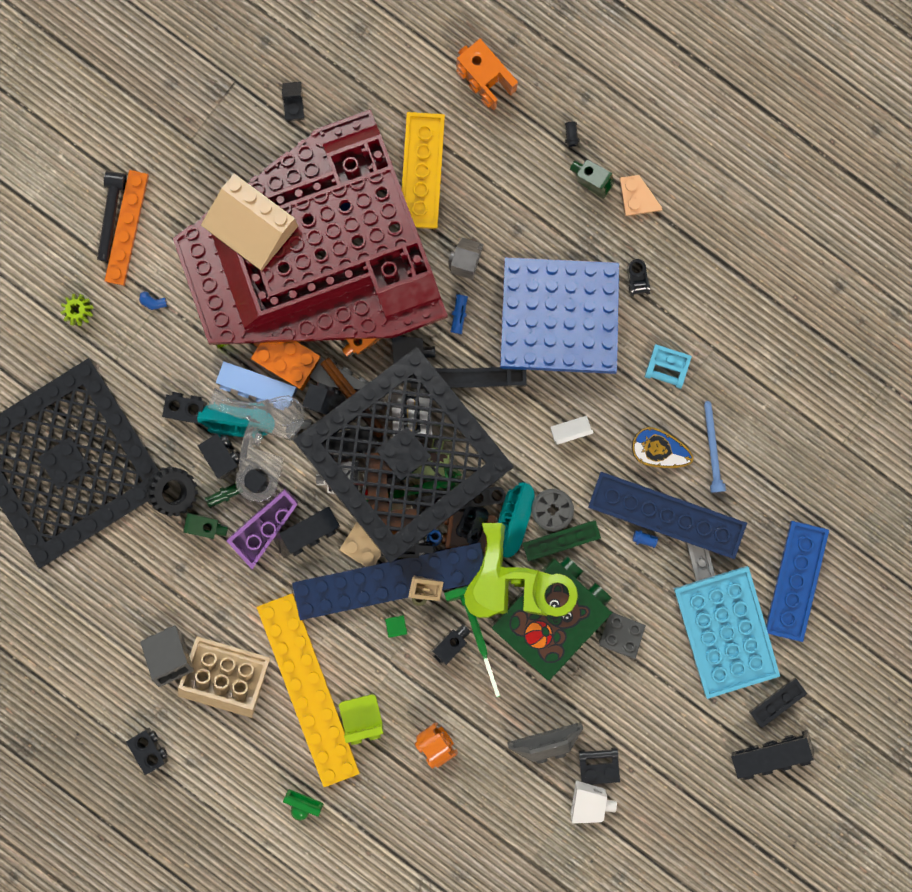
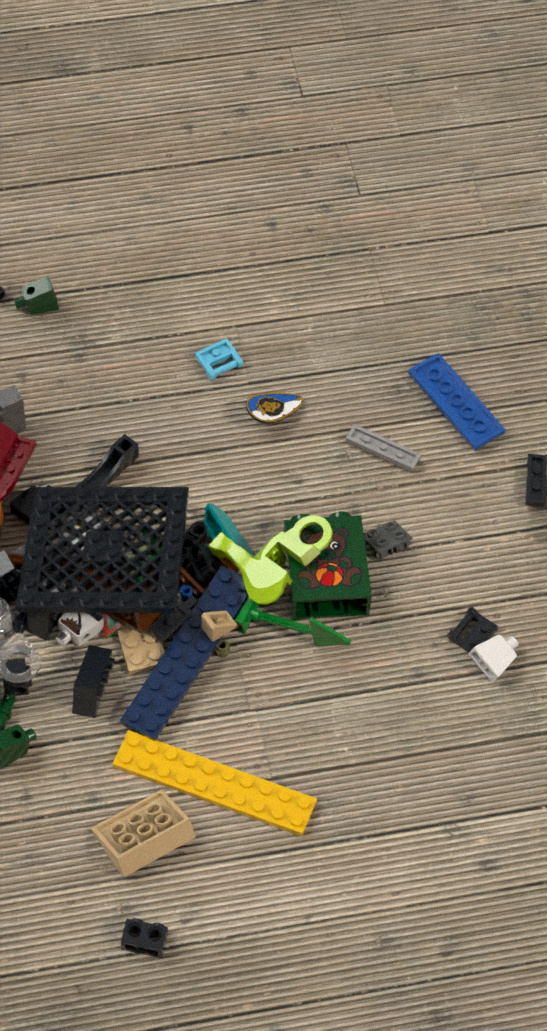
camera: 50 degrees left, 30 degrees down
(167, 656) = (84, 851): dark grey brick -> none
(258, 532) = (57, 710): medium lavender wedge -> none
(302, 805) = (301, 860): green tile -> none
(361, 719) = (275, 761): lime bracket -> none
(396, 626) = (227, 681): green tile -> none
(436, 745) = (347, 721): orange brick -> none
(443, 651) = (279, 646): black torso -> none
(459, 314) = (41, 454): blue pin -> none
(547, 744) = (420, 650): dark grey wedge -> none
(560, 315) = (111, 390): plate -> none
(561, 540) = (275, 518): dark green plate -> none
(562, 516) = (245, 499): dark grey wheel -> none
(571, 430) = (201, 452): white panel -> none
(637, 196) = (80, 287): light nougat wing -> none
(638, 279) = (138, 329): black piece -> none
(645, 539) = (328, 469): blue pin -> none
(667, 515) = (325, 438): dark blue plate -> none
(717, 483) = (336, 395): medium blue piece -> none
(727, 632) = (450, 468): medium azure plate -> none

